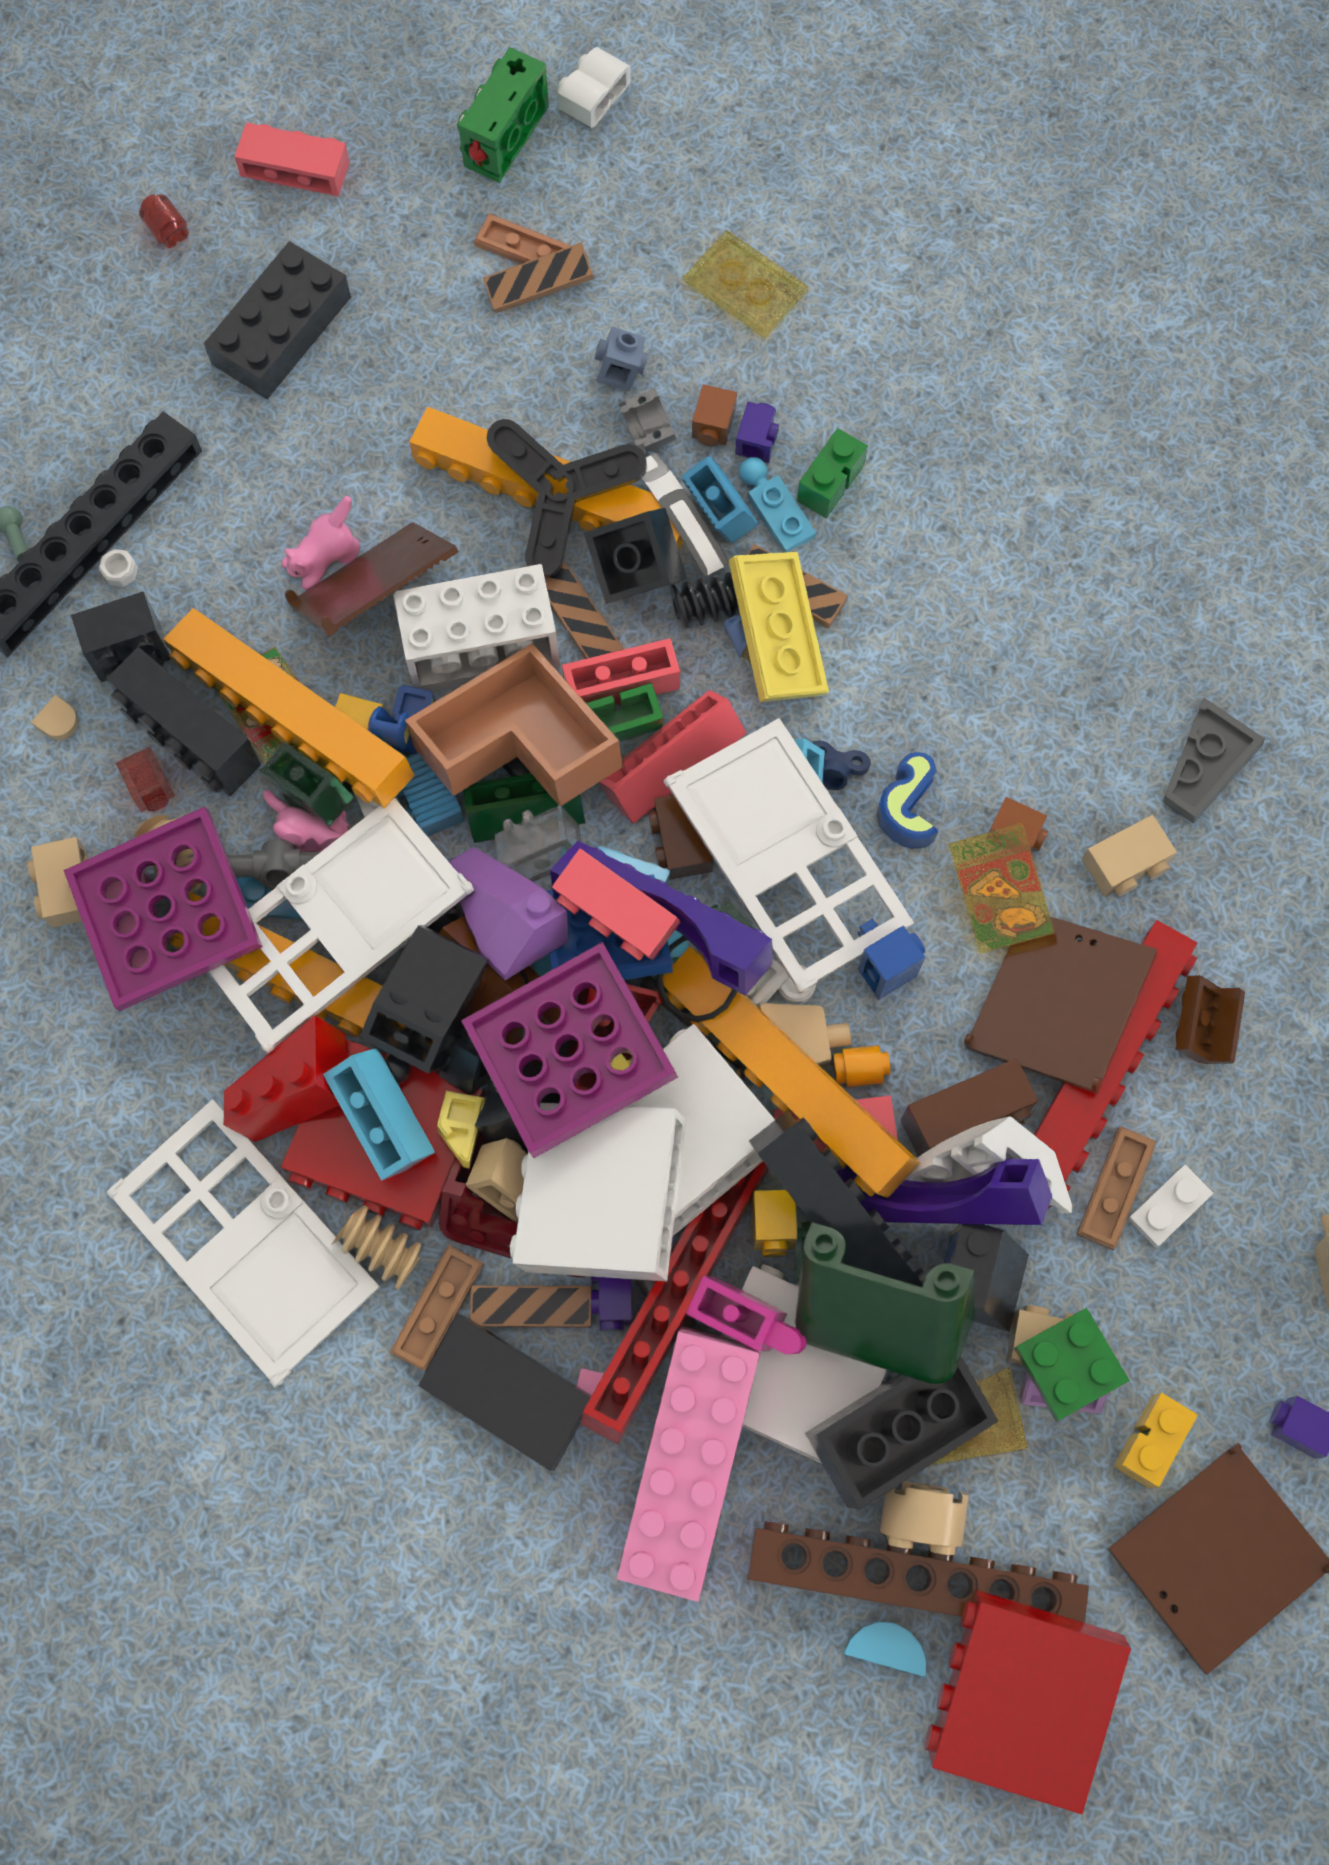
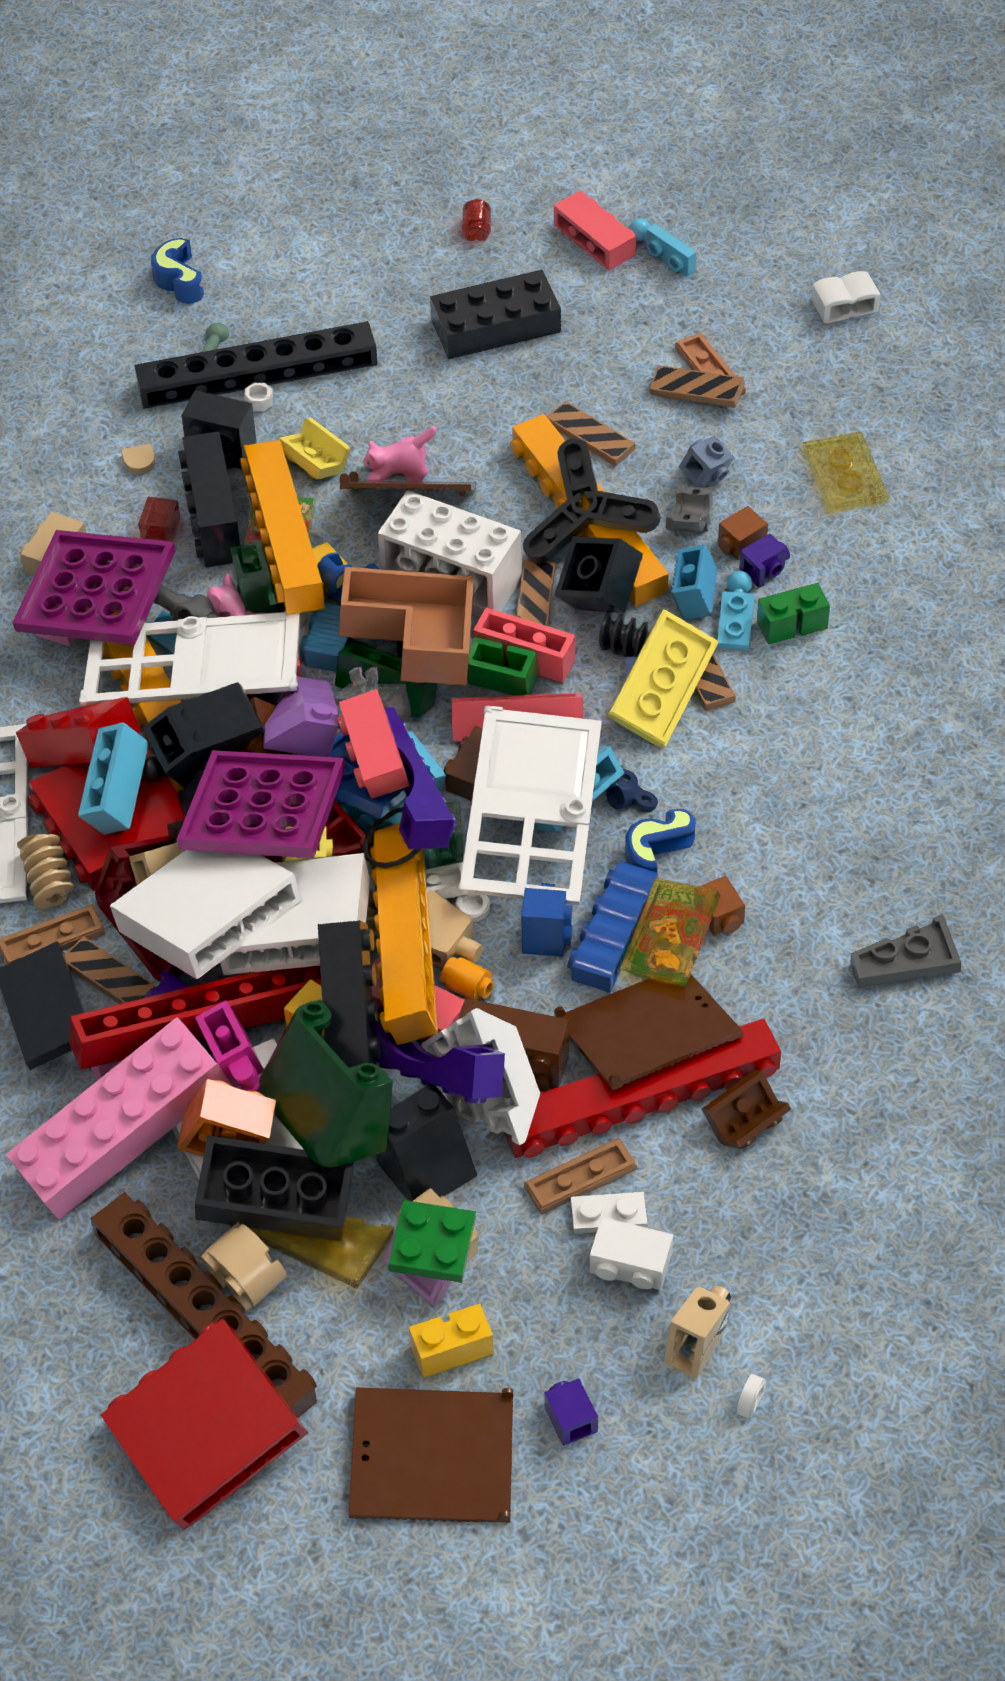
camera: 40 degrees right, 20 degrees down
(232, 592) = (316, 450): none -> light yellow bracket
(376, 135) = (665, 246): none -> medium azure plate
(458, 1122) = (155, 825): light yellow tile -> none
(477, 395) = (596, 435): none -> medium nougat tile
(503, 114) = (760, 276): green piece -> none
(684, 516) = (658, 573): sticker -> none
(805, 1399) = (225, 1113): none -> brick
(888, 1646) = (146, 1337): medium azure tile -> none
(943, 915) = (612, 927): none -> blue brick
(1129, 857) = (786, 974): tan brick -> none
(1232, 1237) = (631, 1254): none -> white brick

